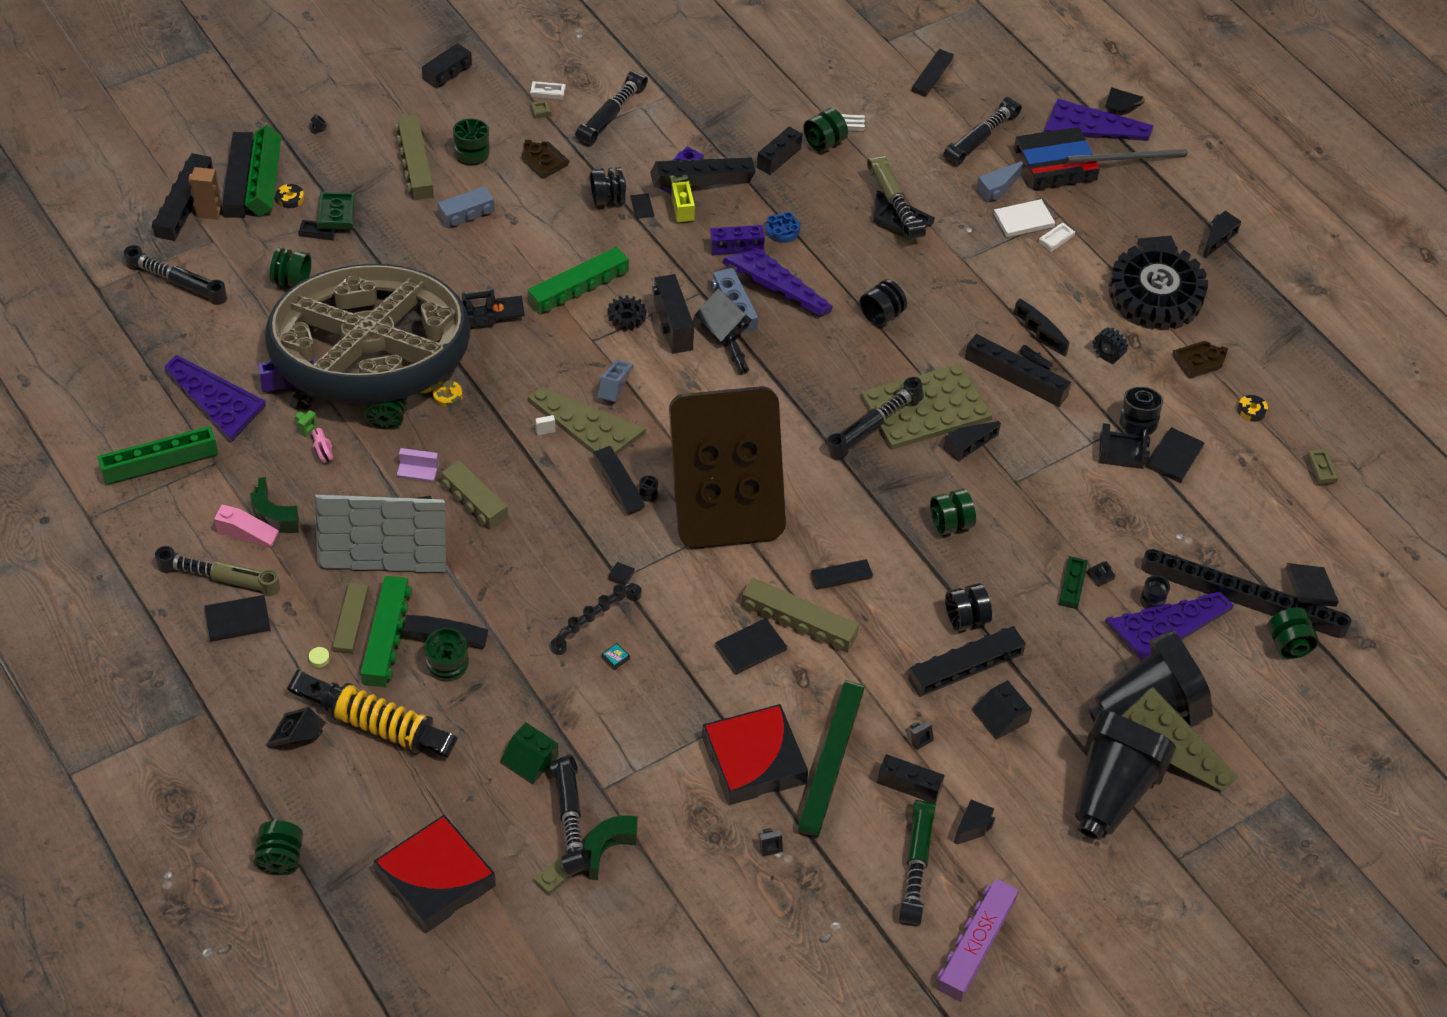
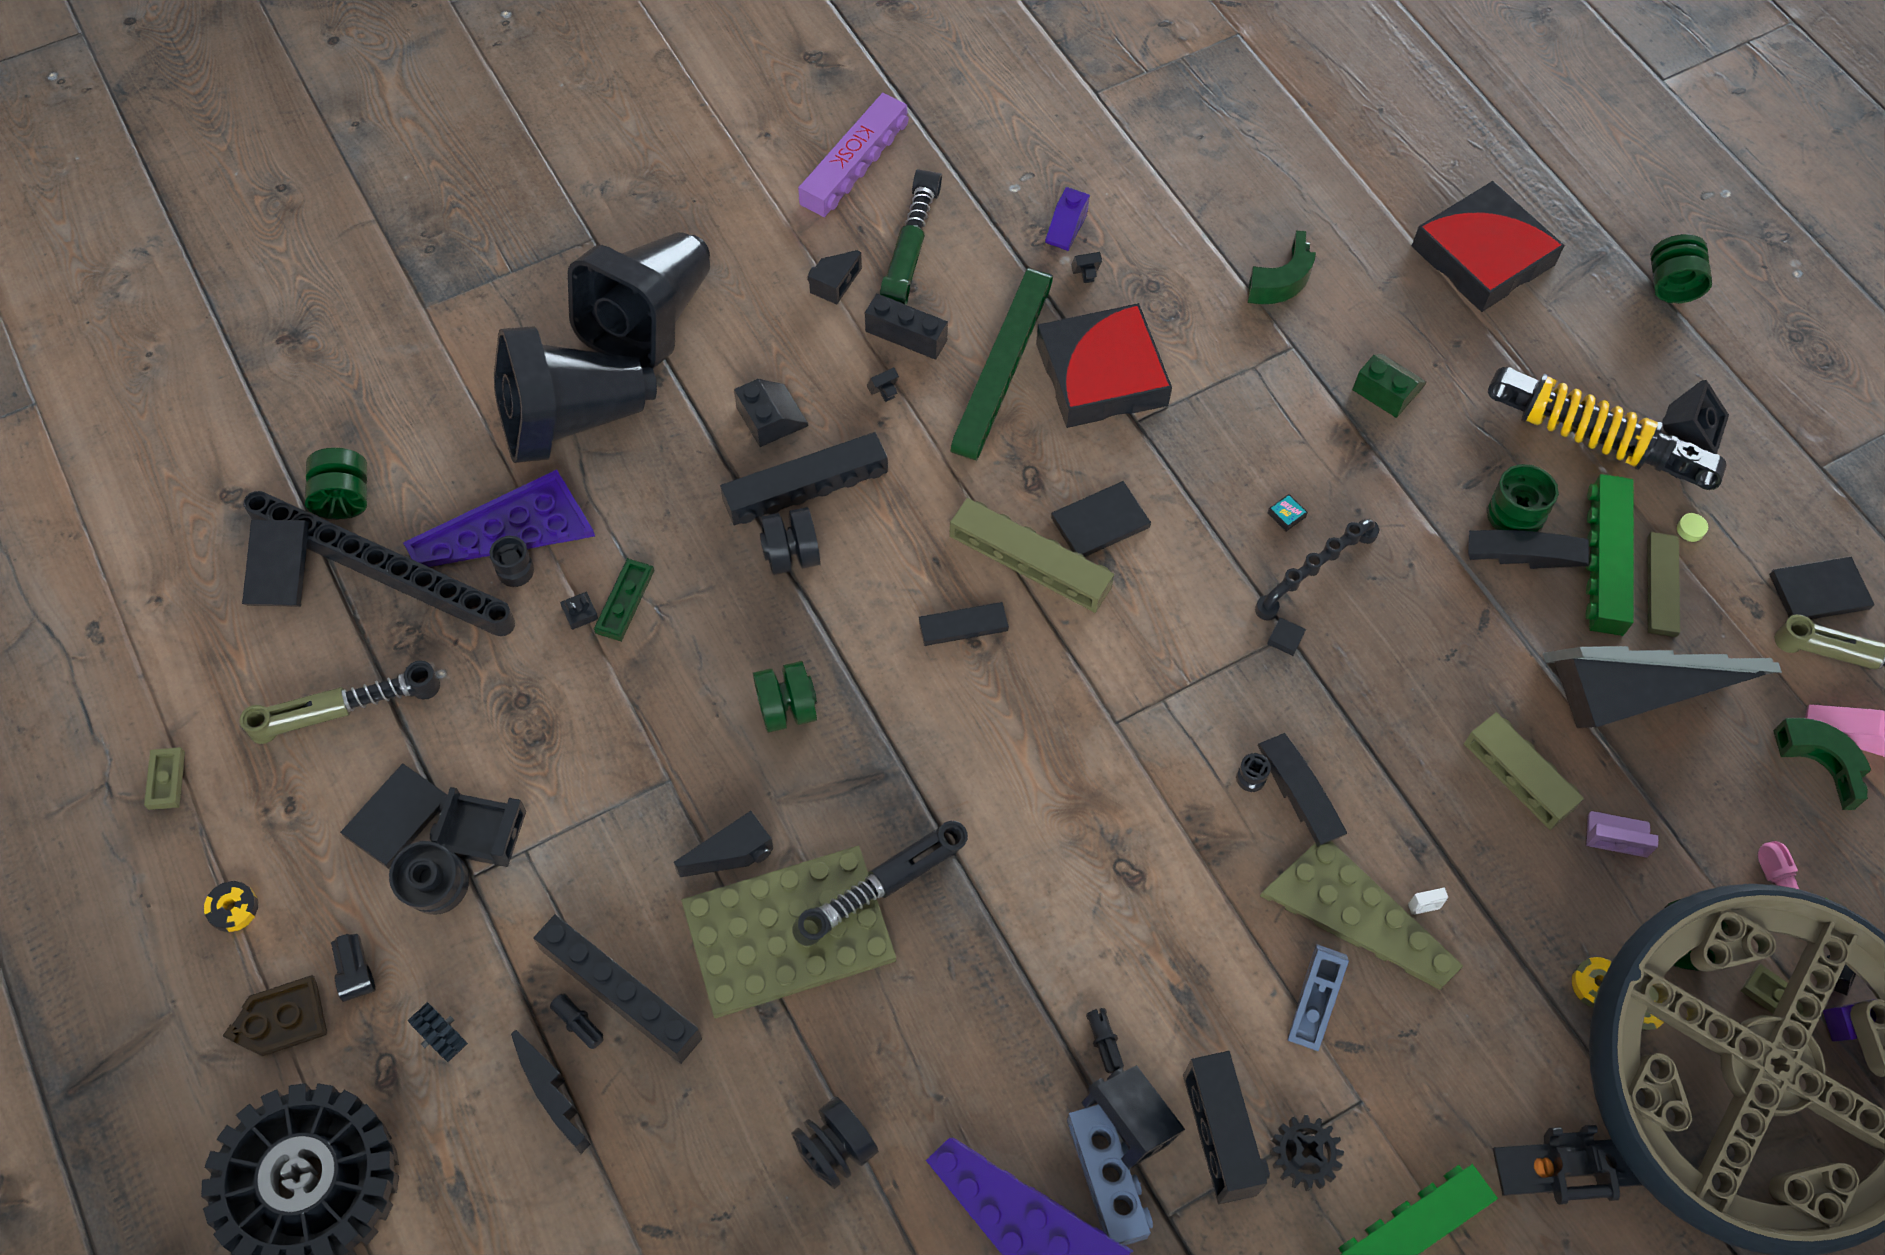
camera: 175 degrees left, 10 degrees up
(552, 877) = (1341, 249): olive plate -> none
(565, 773) = (1344, 349): black piece -> none
(727, 466) = (1162, 710): dark brown piece -> none
(787, 886) = (1068, 218): none -> dark purple slope
(1169, 375) = (353, 974): none -> black piece
(1191, 751) = (563, 334): olive wing -> none
(1273, 497) = (335, 703): none -> piece

